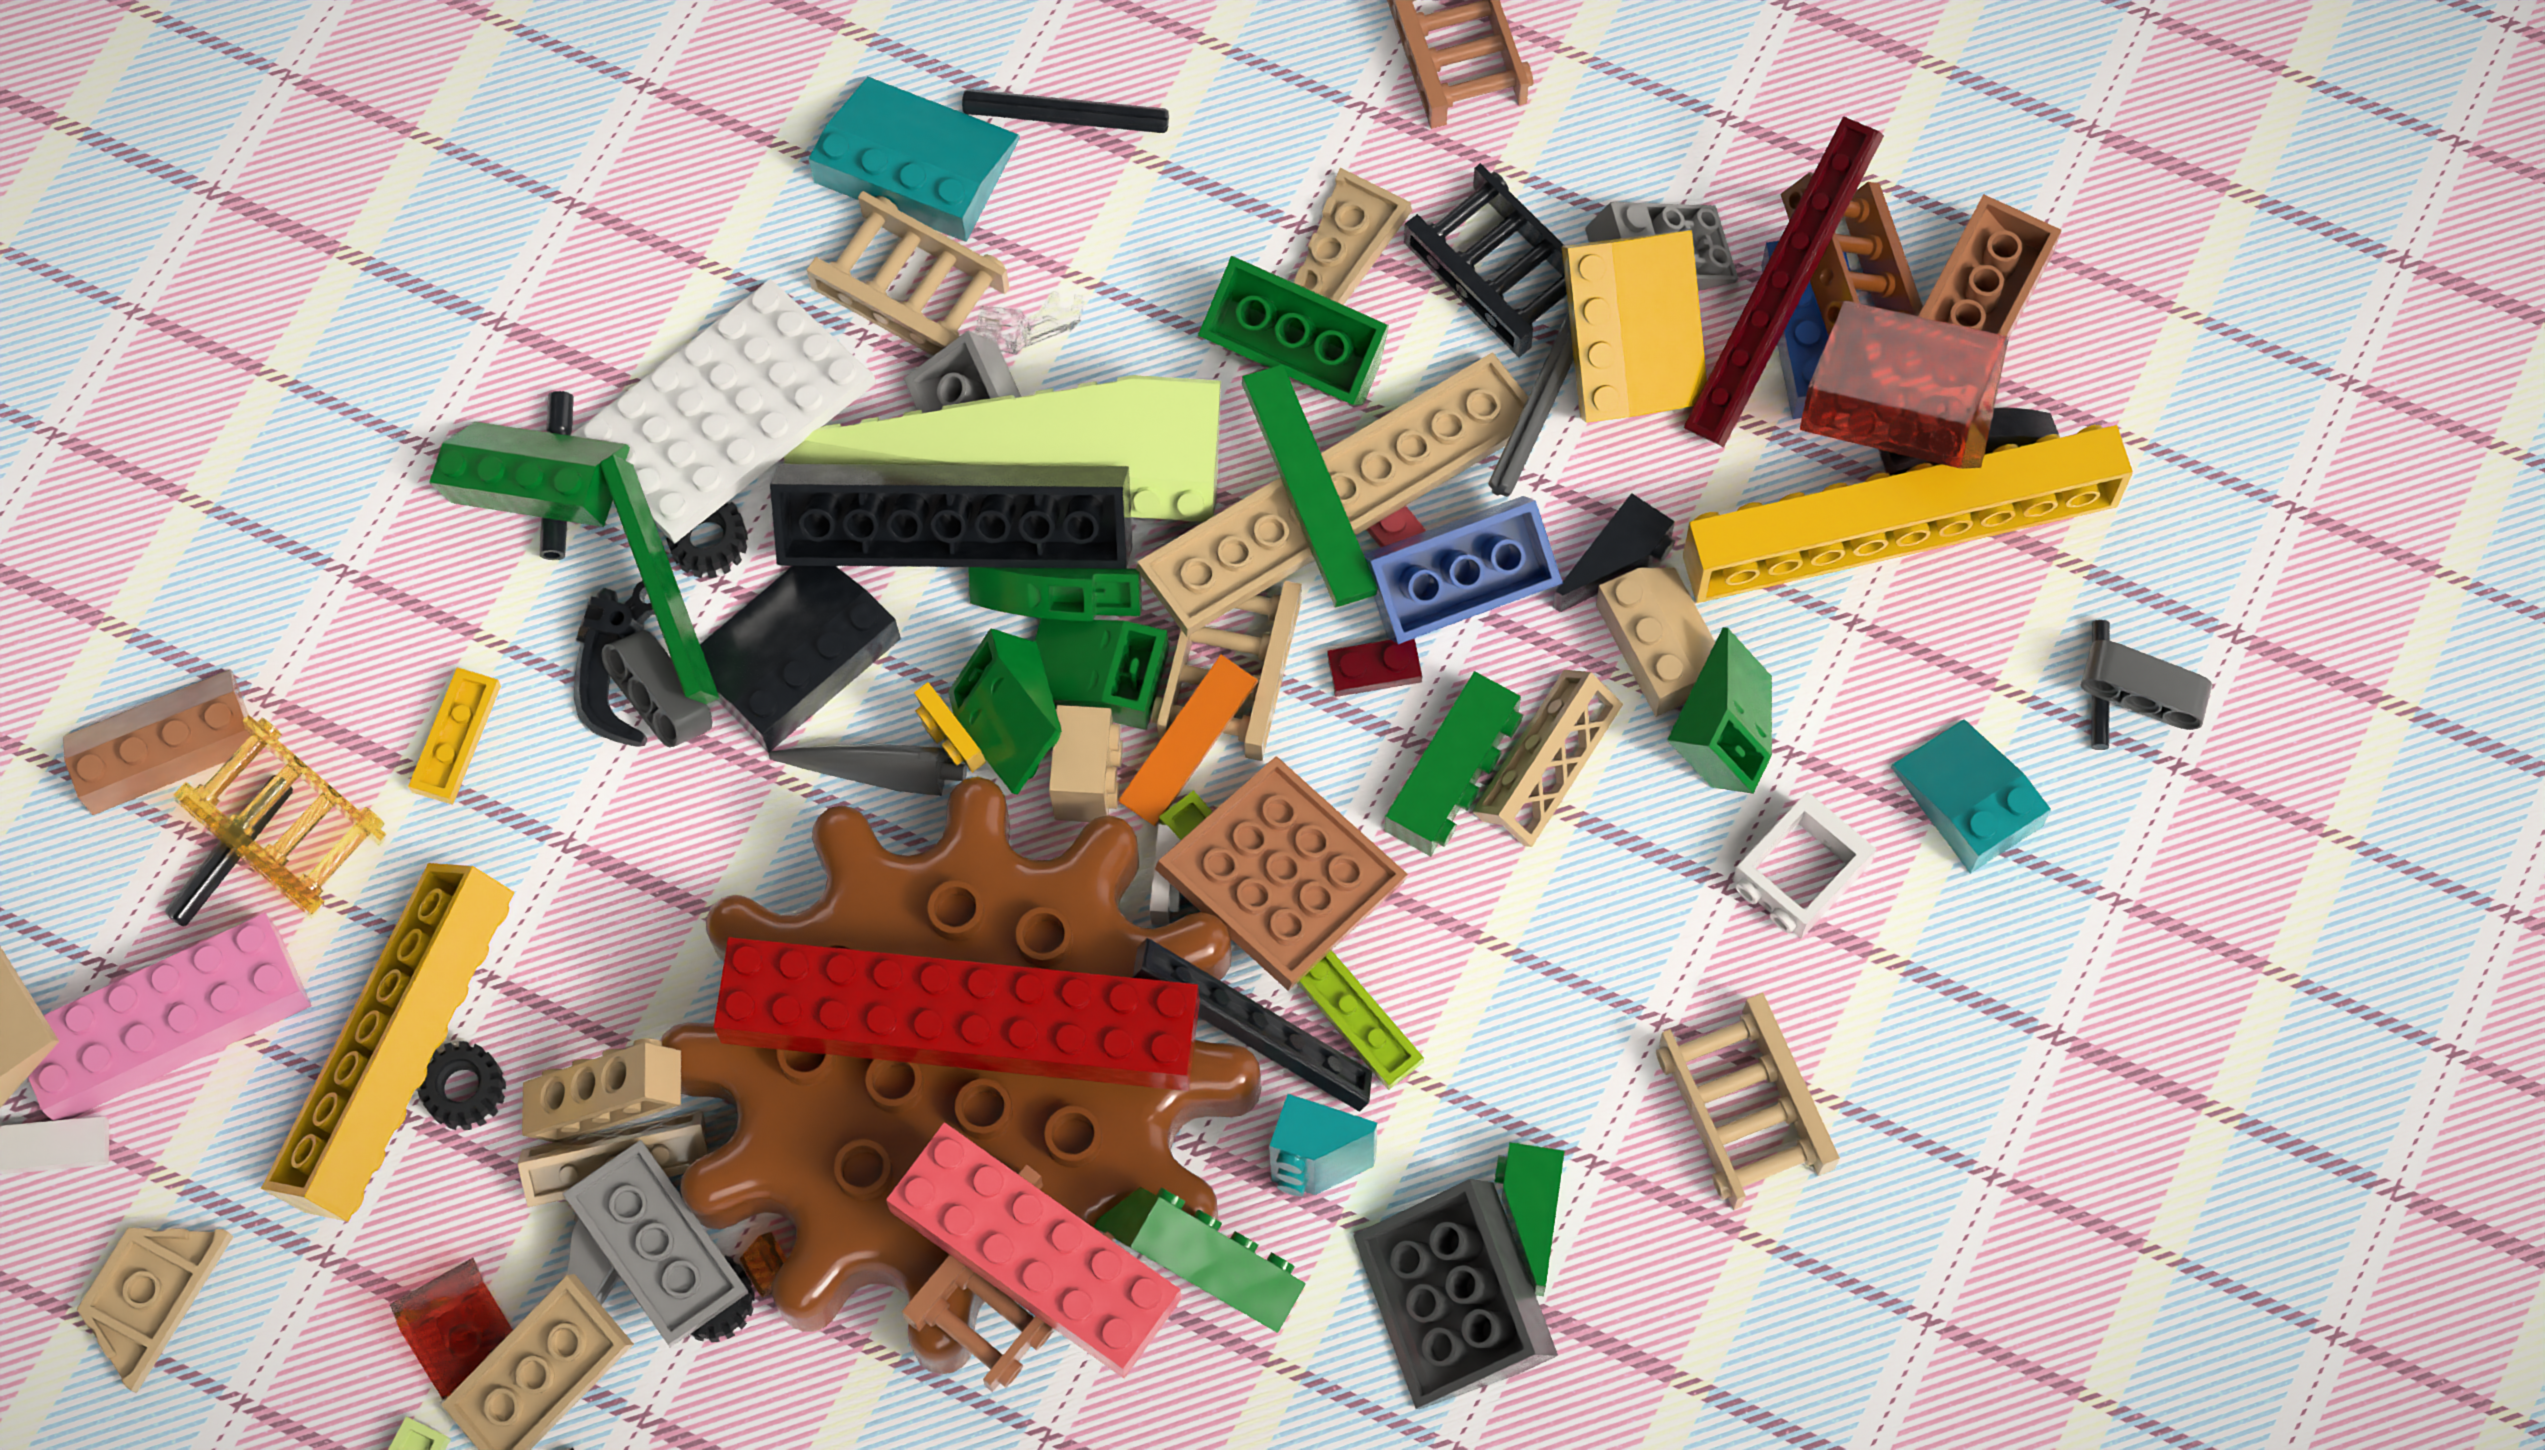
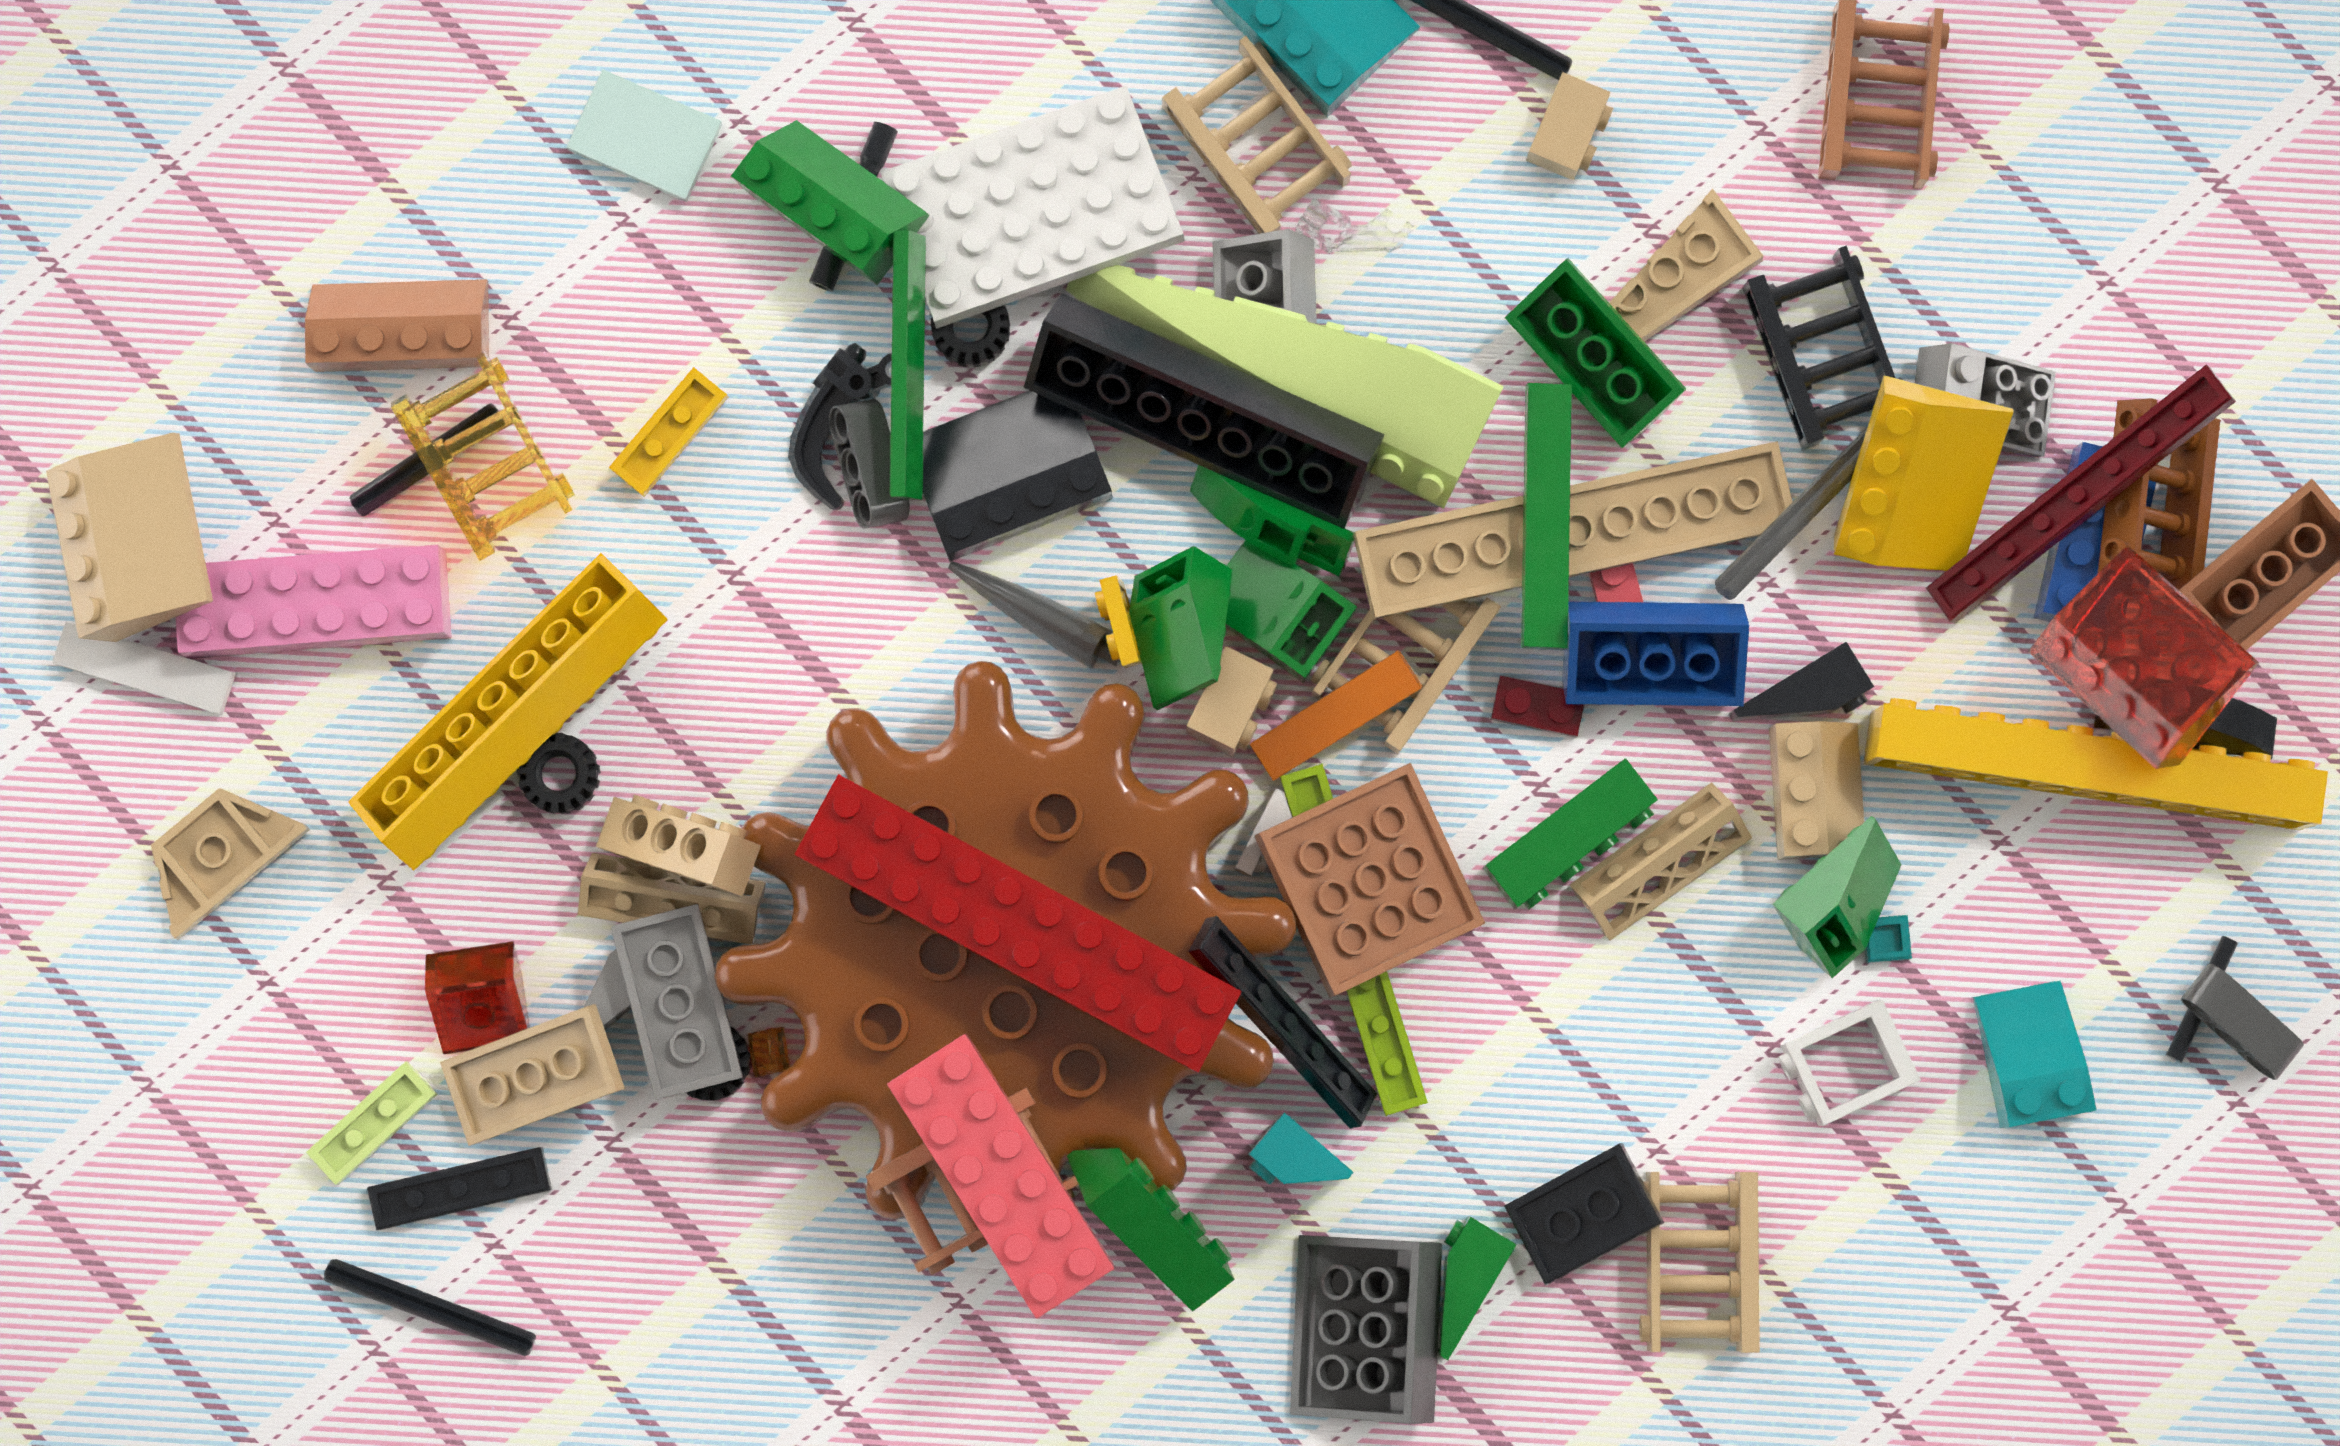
camera: 20 degrees right, 15 degrees up
(336, 488) = (644, 135): none -> light aqua tile
(1188, 163) = (1568, 127): none -> tan brick
(1616, 1100) = (1584, 1214): none -> black tile
(1791, 745) = (1889, 940): none -> teal tile

